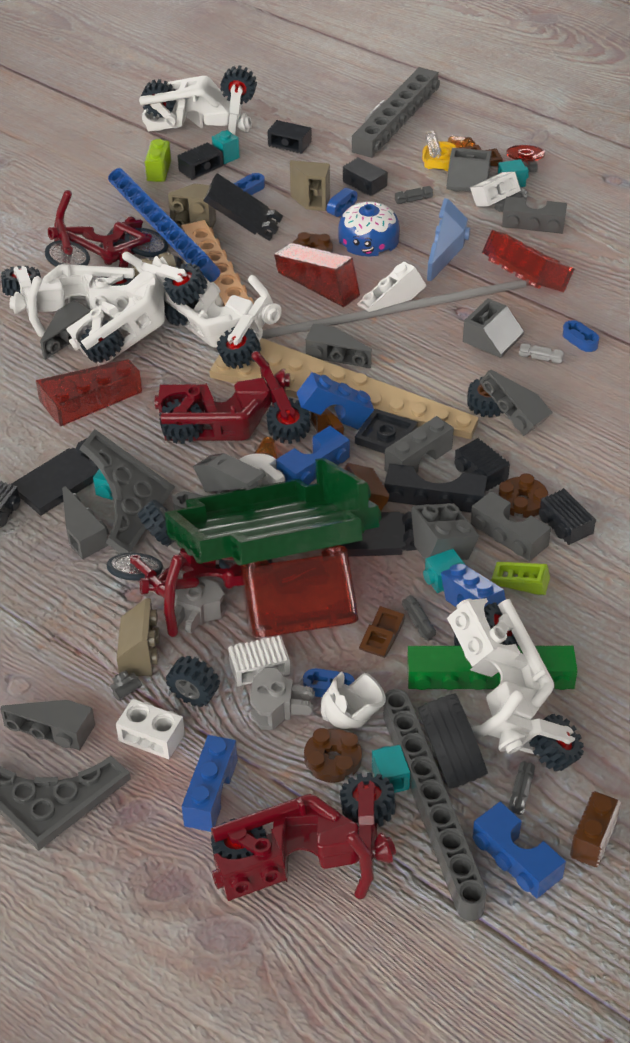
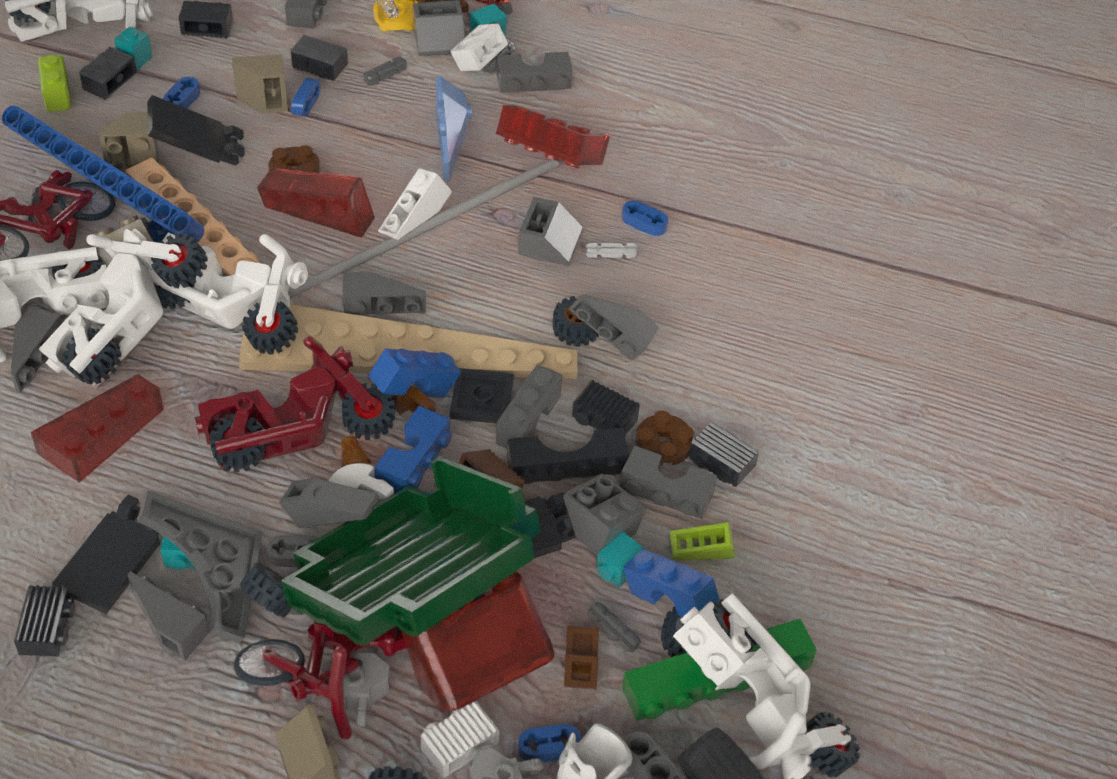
camera: 25 degrees left, 5 degrees up
(368, 229) = (353, 129): cylinder -> none

